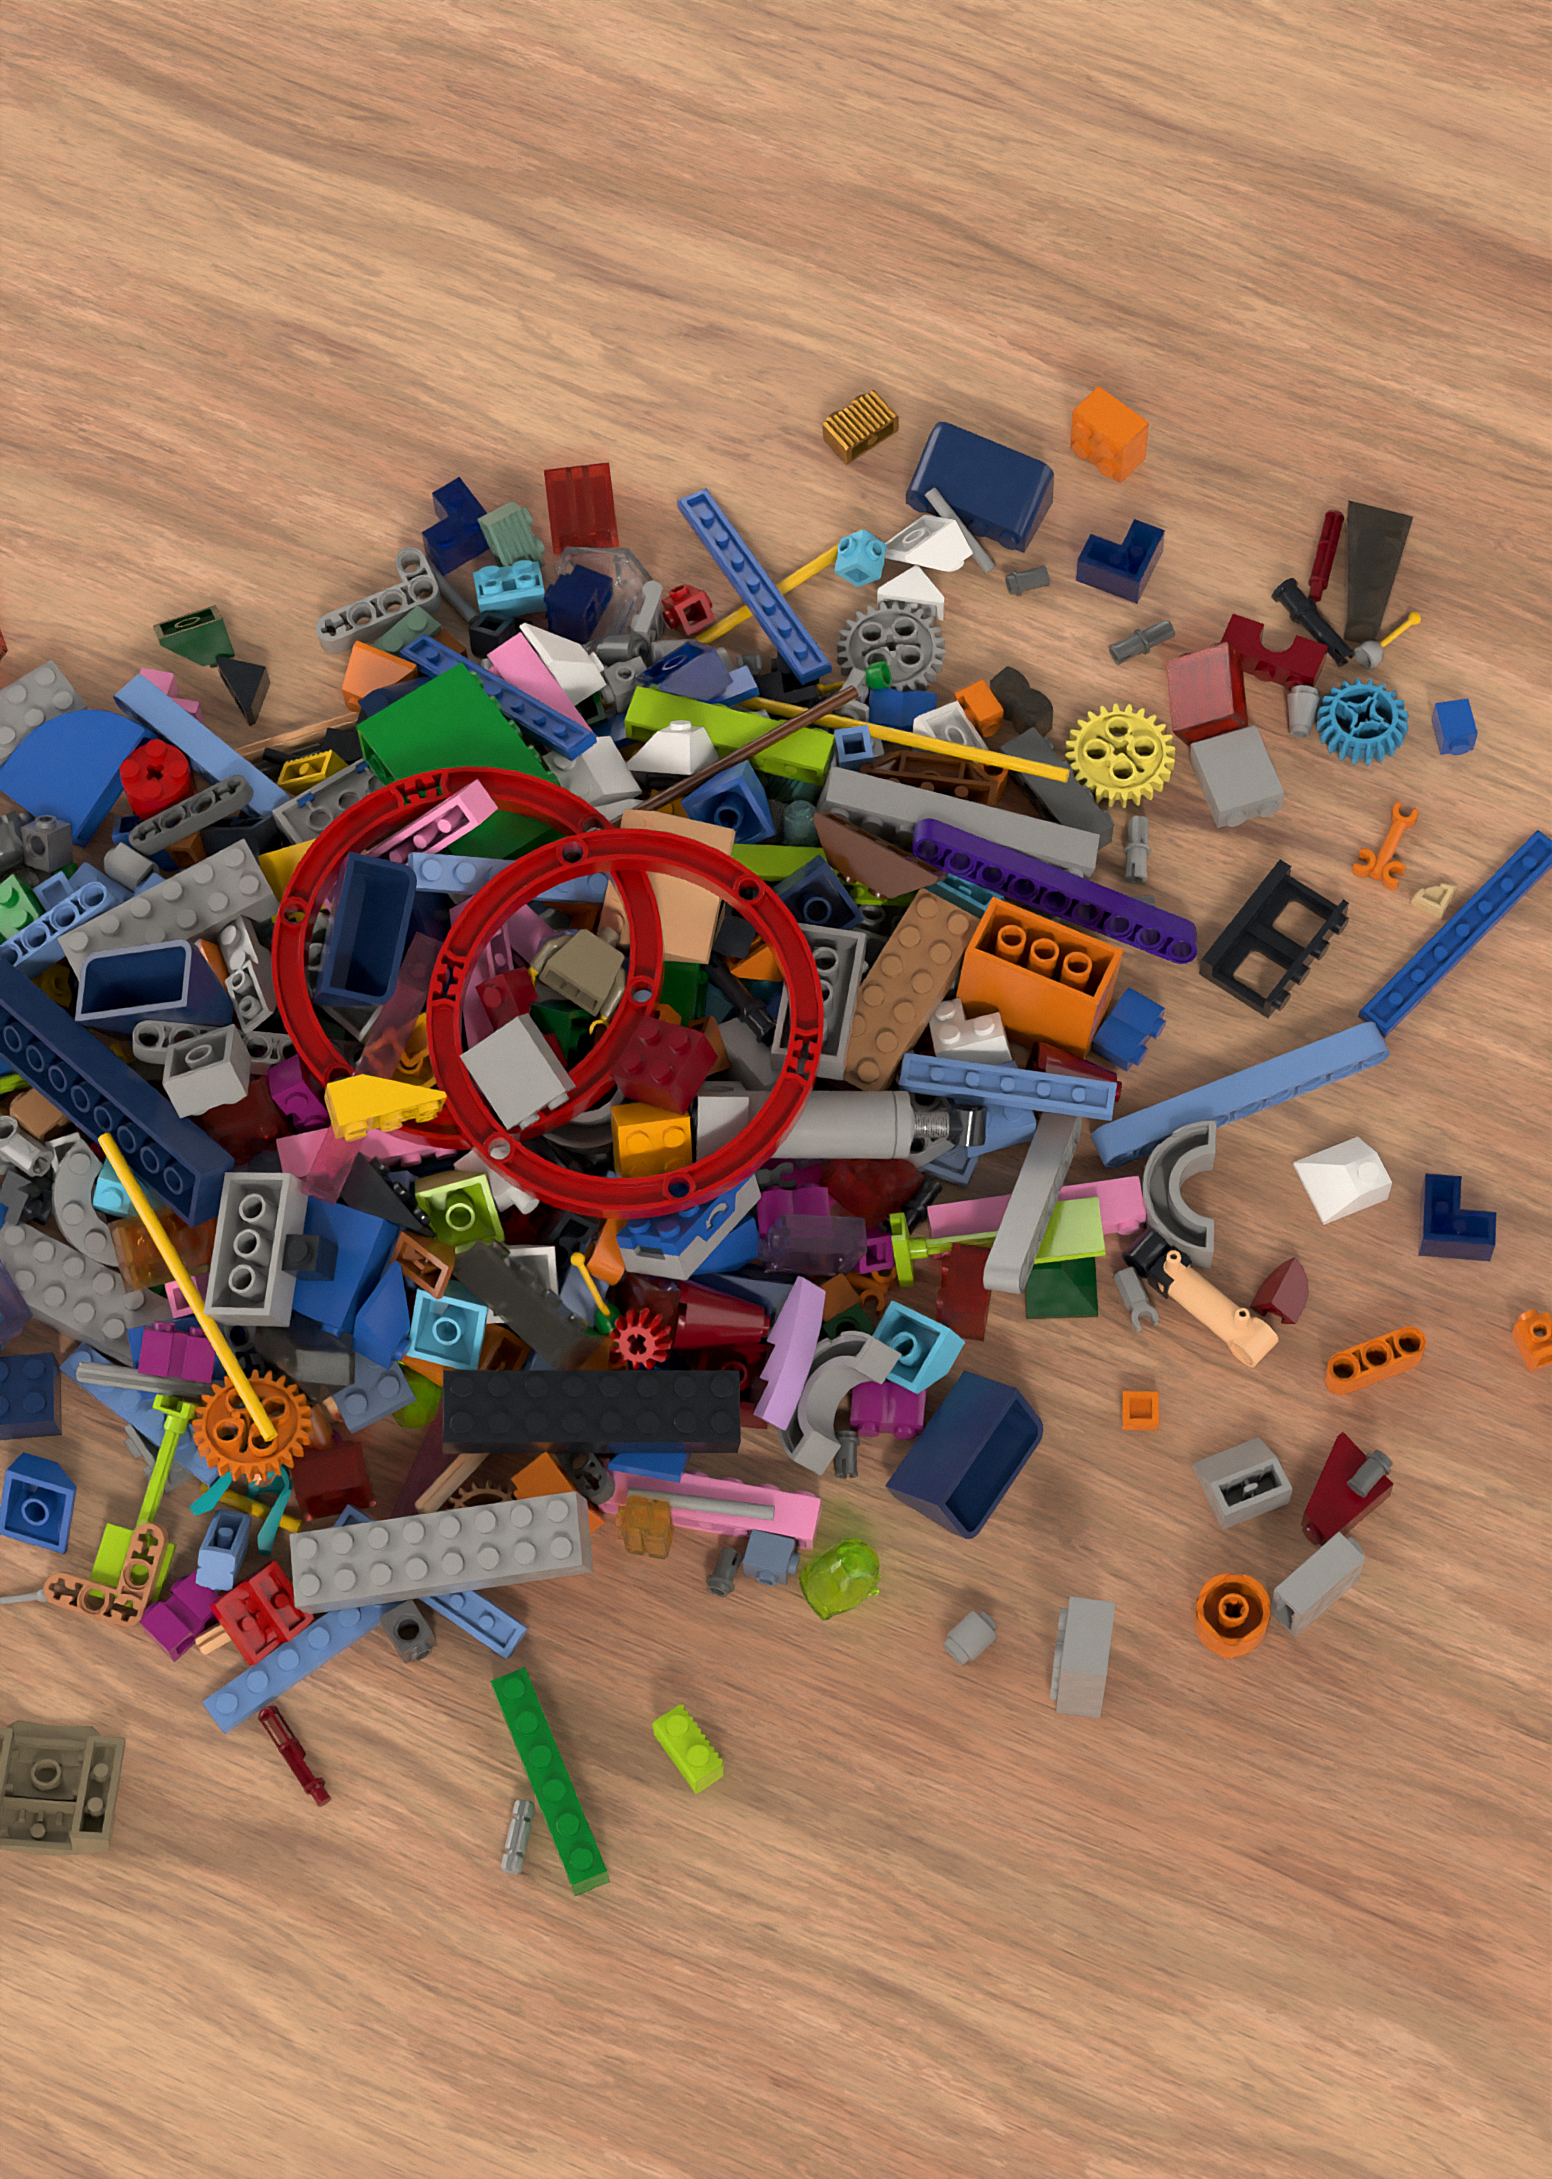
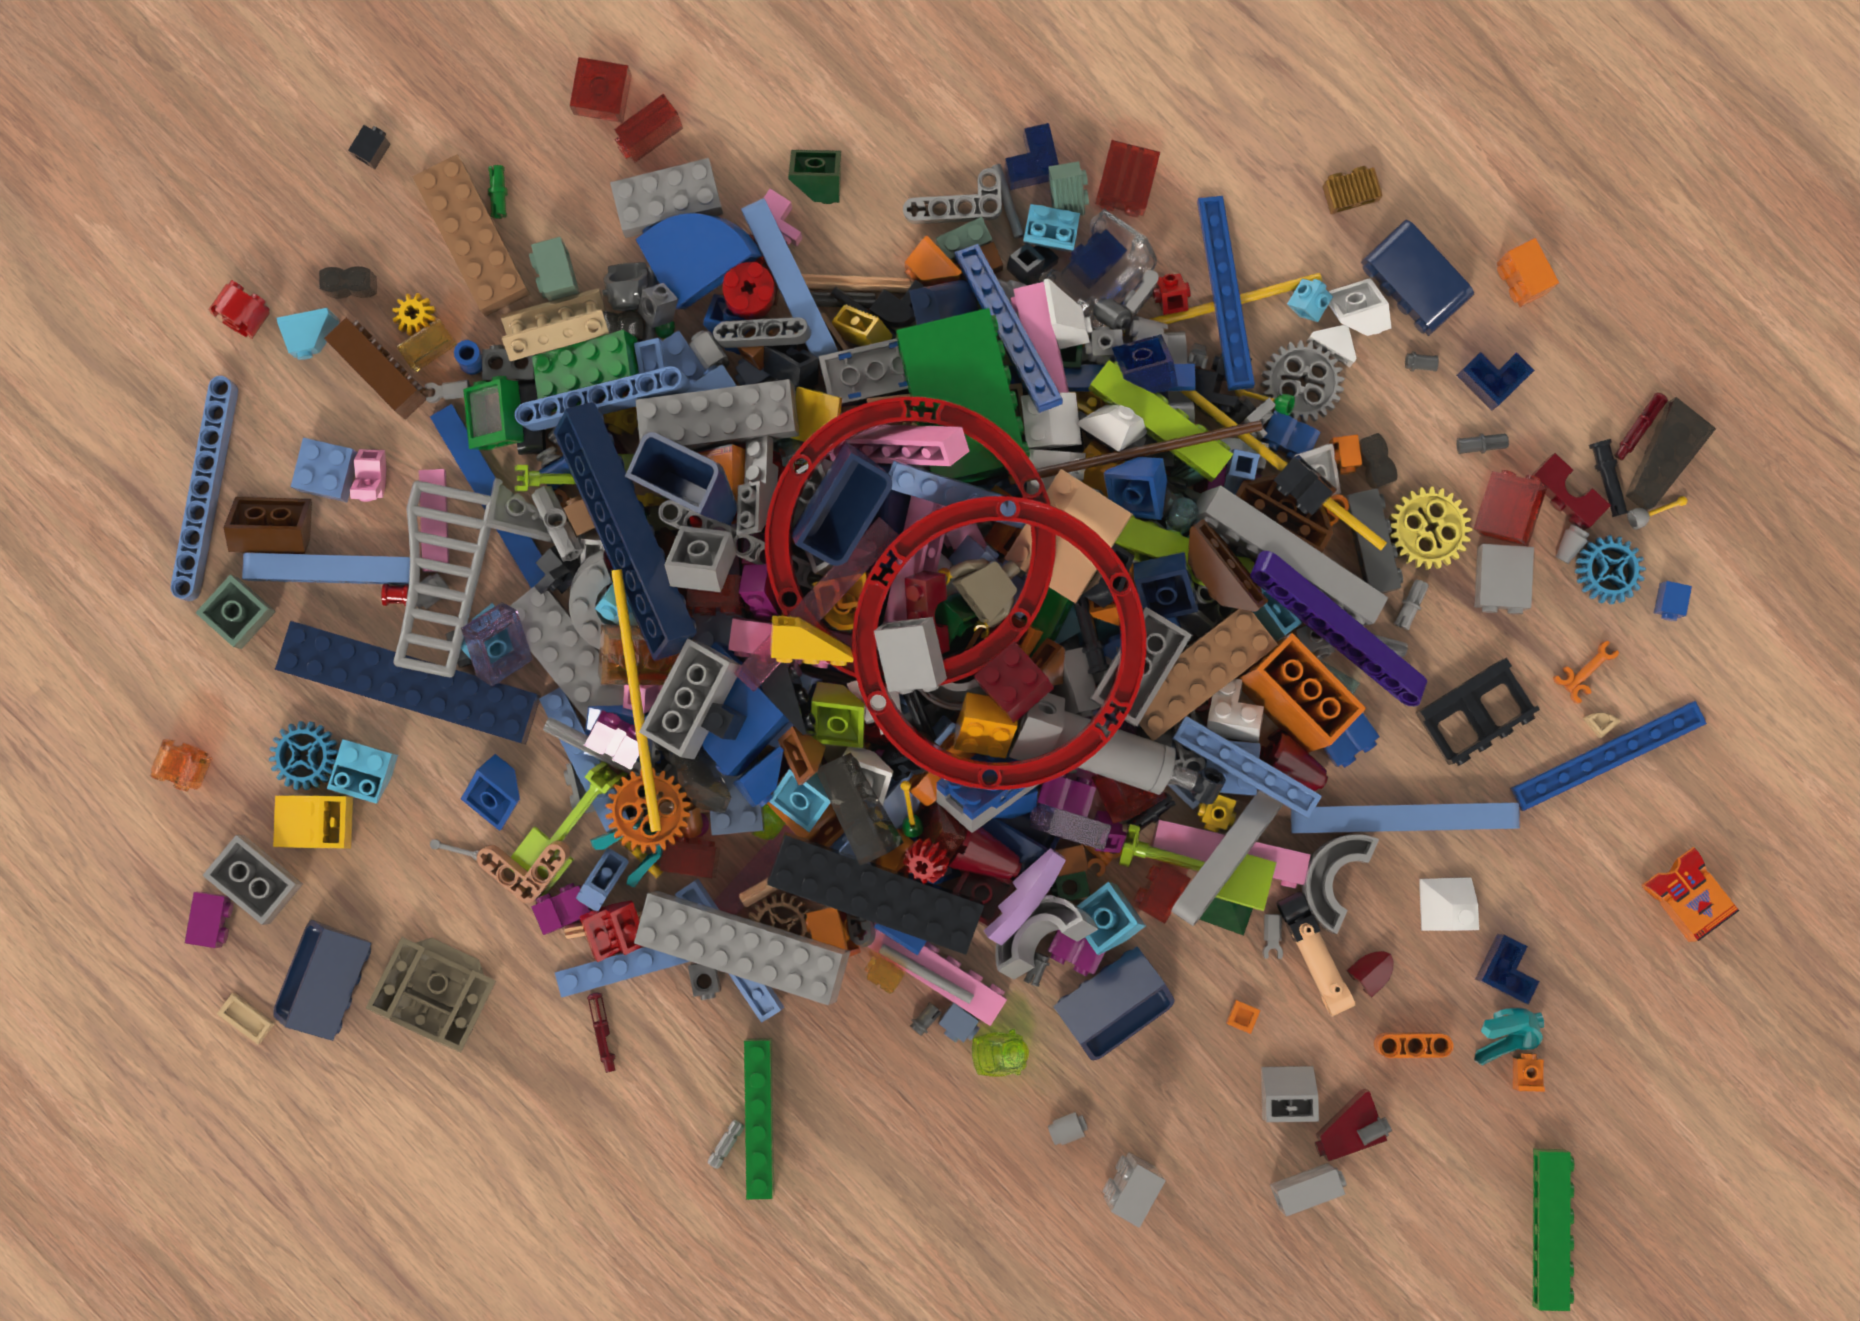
camera: 15 degrees right, 20 degrees up
(246, 684) = (840, 228): black slope -> none
(688, 1748) = (856, 1132): lime brick -> none
(939, 740) = (1305, 485): none -> black brick
(946, 511) = (1386, 292): light grey bar -> none
(996, 1170) = (1226, 814): none -> yellow brick
(1233, 1594) = (1256, 1192): orange brick -> none
(1504, 1285) = (1521, 1027): none -> teal piece

